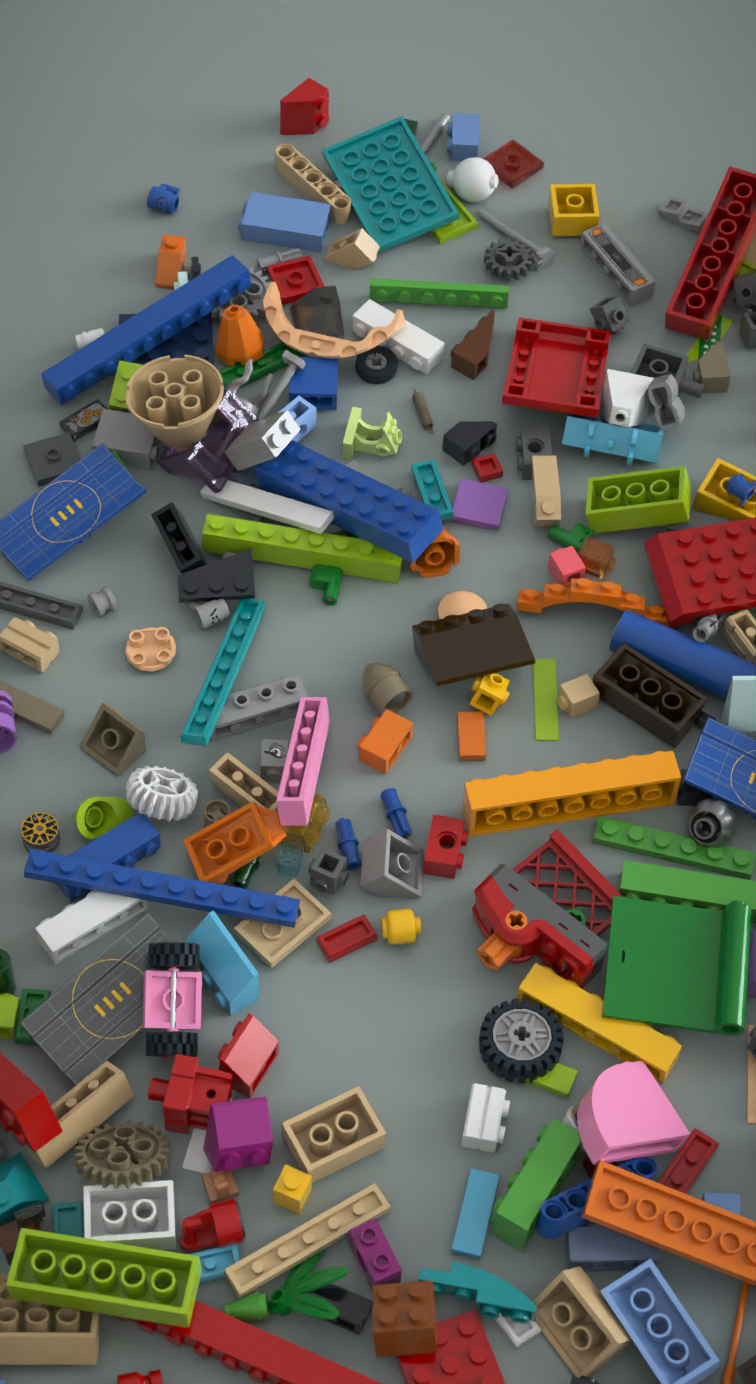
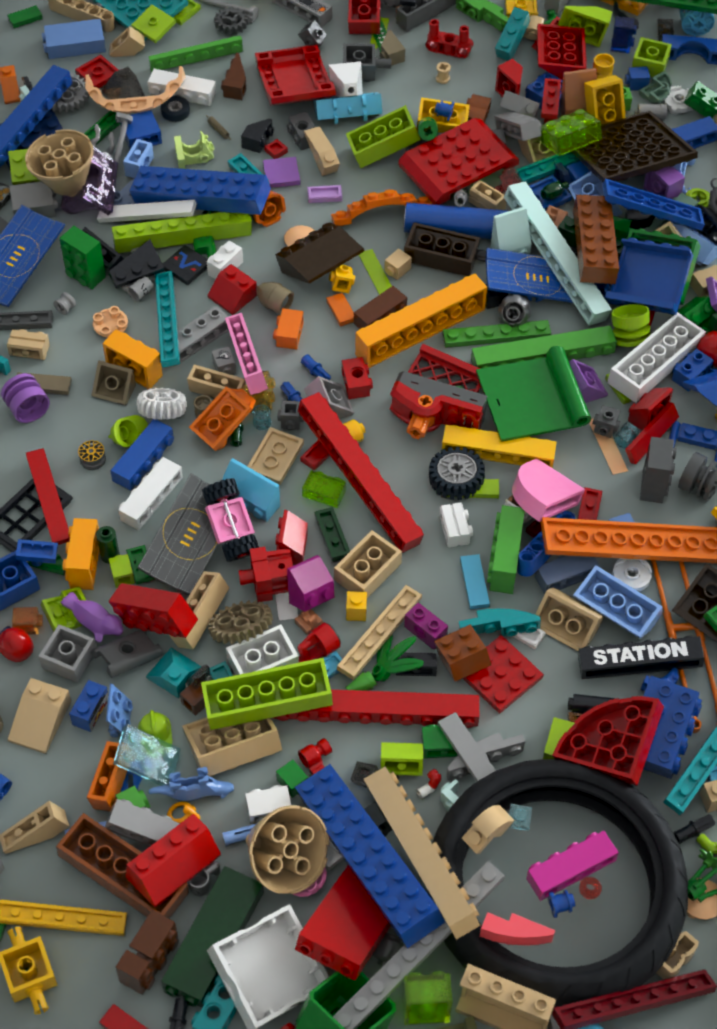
camera: 20 degrees left, 0 degrees up
(148, 546) = (82, 257): none -> green brick
(153, 712) = (133, 354): none -> light orange brick
(162, 888) = (188, 458): blue plate -> none
(236, 169) = (25, 16): none -> green tile
(239, 337) = (78, 114): orange cone -> none
(262, 440) = (127, 171): light grey brick -> none
(278, 258) = (80, 61): light grey axle -> none
(289, 598) = (186, 264): none -> black tile
(308, 1067) = (332, 533): none -> dark green plate
(327, 996) = (324, 488): none -> clear neon green brick
(333, 657) = (232, 289): none -> red slope
(341, 611) = (226, 255): none -> white brick
(383, 994) = (360, 472): none -> red brick
(398, 233) = (153, 23): none -> lime plate
(523, 754) = (380, 307): none -> reddish brown brick
(524, 555) = (320, 194): none -> lavender tile
(566, 565) = (354, 190): coral brick -> none
(574, 538) = (352, 174): green piece -> none
(597, 557) = (370, 180): clear orange brick -> none
(664, 397) = (371, 70): light grey brick -> none
(696, 1302) = (640, 567): none -> white plate
(703, 509) = (431, 133): none -> green piece

